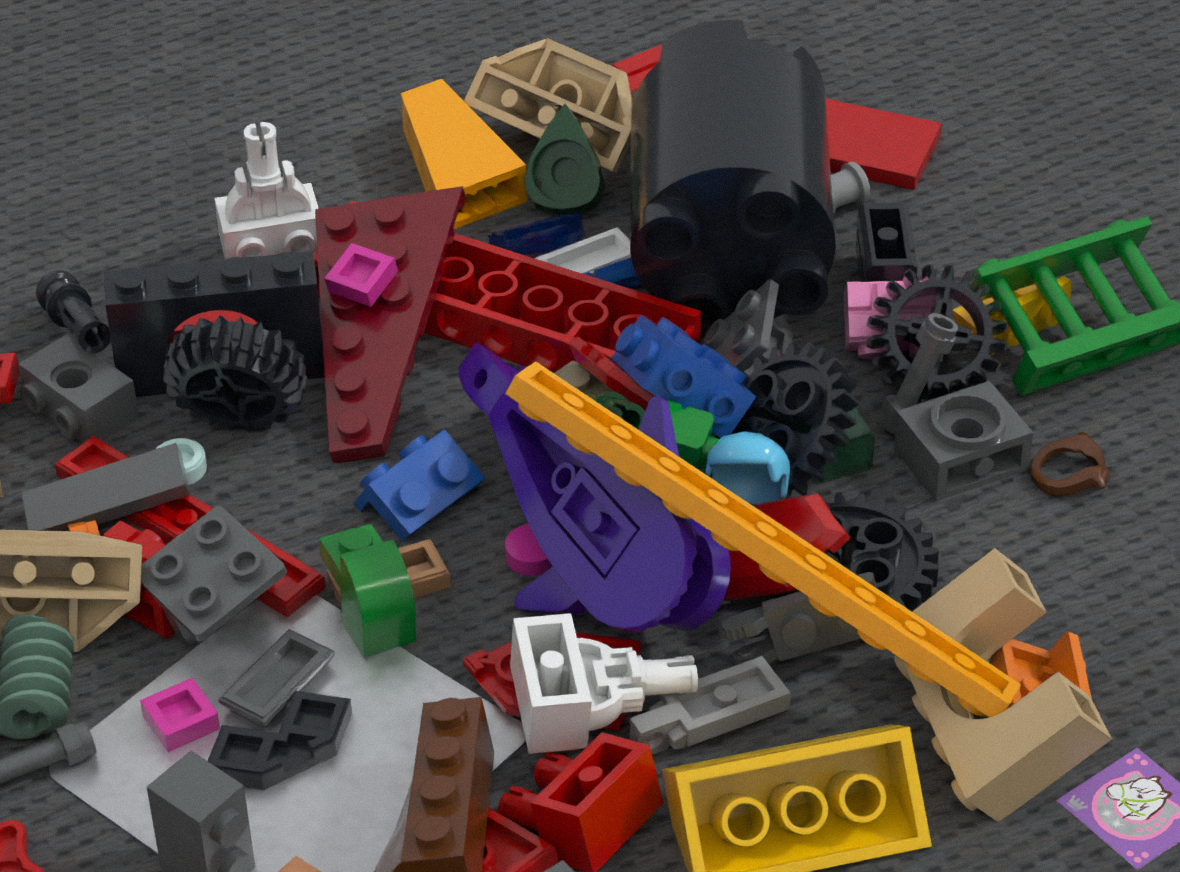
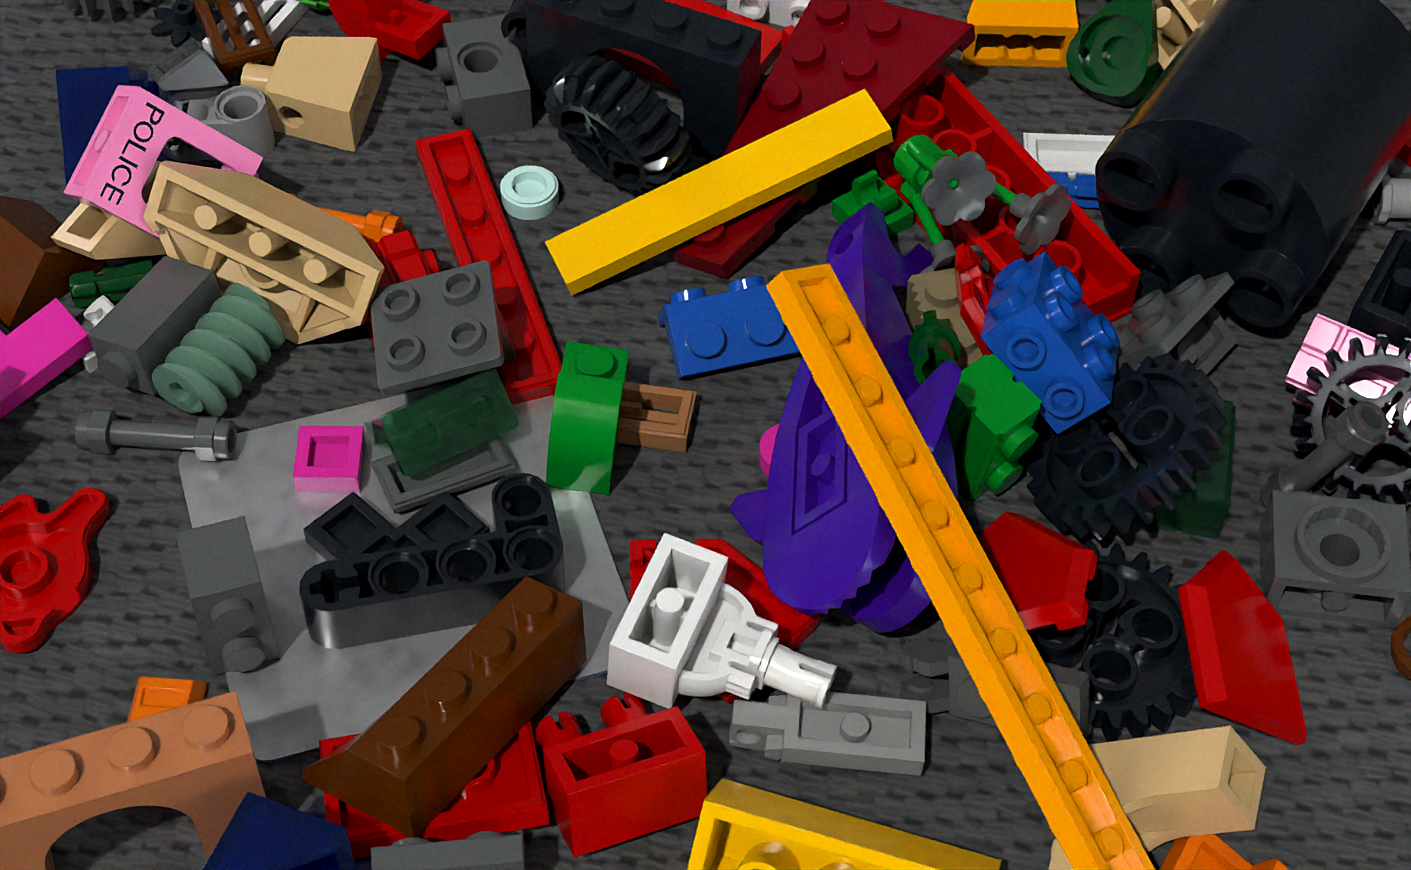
camera: 30 degrees right, 10 degrees up
(108, 491) = (431, 193): dark grey tile -> none
(256, 641) = (445, 422): none -> clear green bracket
(345, 391) = (719, 191): none -> yellow tile
(346, 749) = (356, 597): none -> black beam
(361, 274) = (808, 76): dark pink tile -> none
(450, 355) = (873, 189): none -> green tile
(540, 235) = (1050, 110): clear blue tile -> none
(548, 301) = (958, 189): none -> dark grey plant
(750, 467) = (1045, 480): medium azure hair -> none
(944, 519) = (1240, 651): none -> red tile

